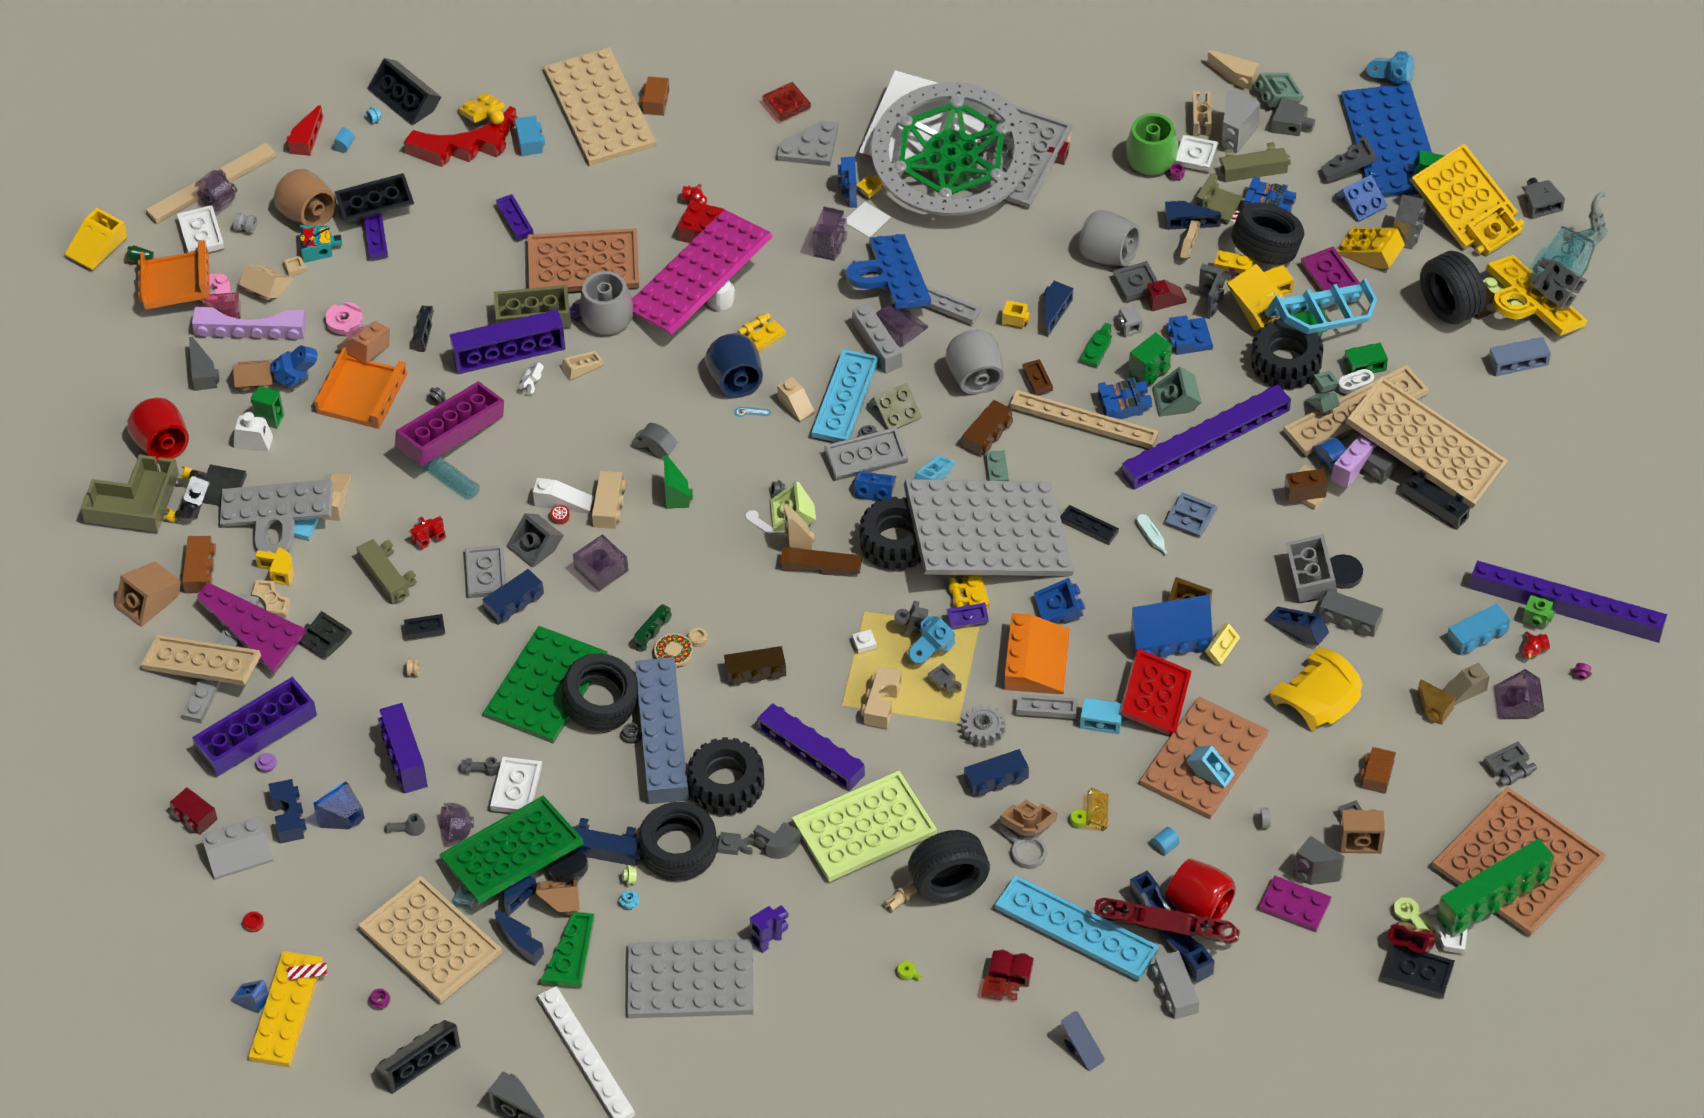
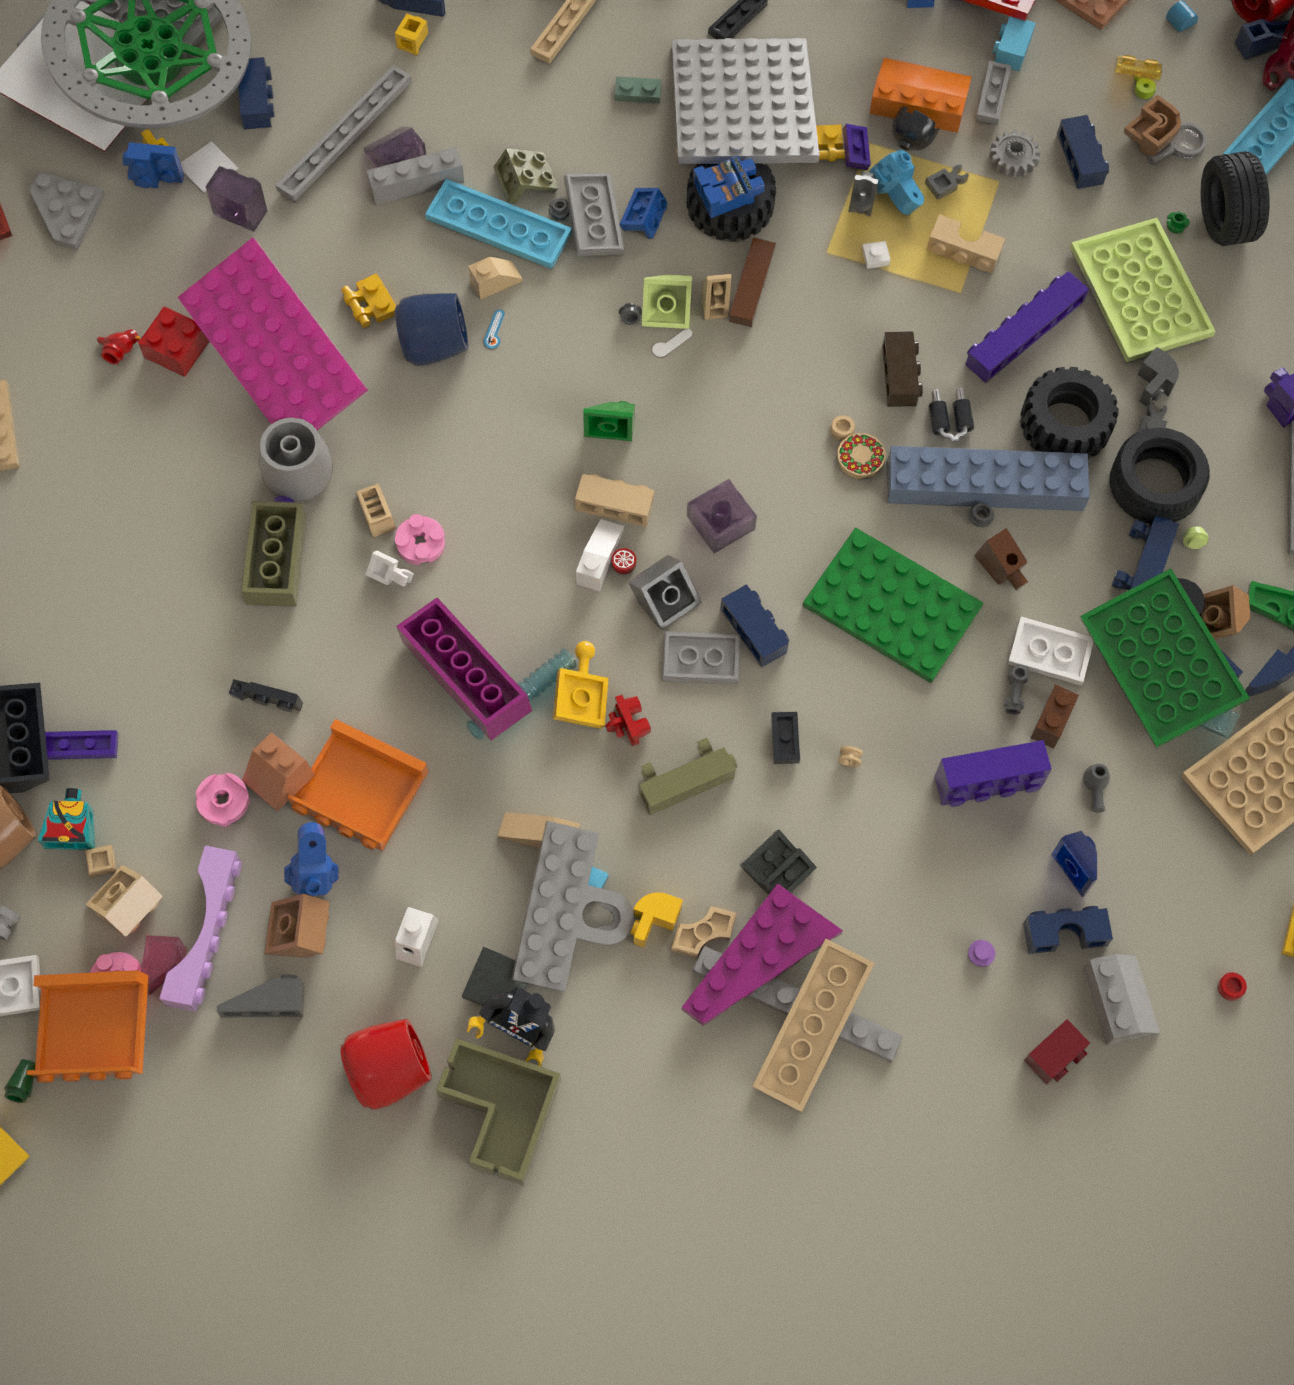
camera: 85 degrees left, 15 degrees up
(146, 592) = (676, 1095): medium nougat slope -> none
(198, 563) = (635, 1023): dark orange brick -> none
(254, 726) = (932, 961): dark purple brick -> none
(268, 405) = (375, 907): green brick -> none
(437, 395) = (392, 688): dark grey plate -> none
(443, 499) = (580, 695): none -> yellow plate
(456, 822) = (1110, 724): clear purple cylinder -> none
(458, 789) = (1054, 716): none -> reddish brown brick
(507, 341) = (327, 587): dark purple brick -> none
(514, 217) = (92, 564): dark purple plate -> none
(559, 385) = (423, 552): none -> bright pink plate
(574, 256) = (196, 489): nougat plate -> none
(587, 742) = (1003, 559): none -> reddish brown torso
(606, 668) = (942, 507): black tyre -> none
(632, 903) = (1223, 548): medium azure plate -> none
(652, 627) = (826, 473): dark green plate -> none
(656, 438) = (528, 433): dark grey brick -> none
(720, 711) = (940, 419): none -> black piece
(885, 514) = (727, 185): none -> blue hips
(897, 270) = (317, 136): blue plate -> none
(902, 895) = (1237, 265): tan pin -> none
(935, 231) = (256, 95): none -> dark blue brick
(935, 469) = (646, 151): medium azure slope -> none
(975, 361) = (488, 74): light grey piece -> none
(987, 428) = (581, 87): reddish brown brick -> none
(990, 649) = (913, 130): none -> black cylinder
(1037, 377) = (511, 28): reddish brown plate -> none
(1060, 602) = (852, 56): blue plate -> none

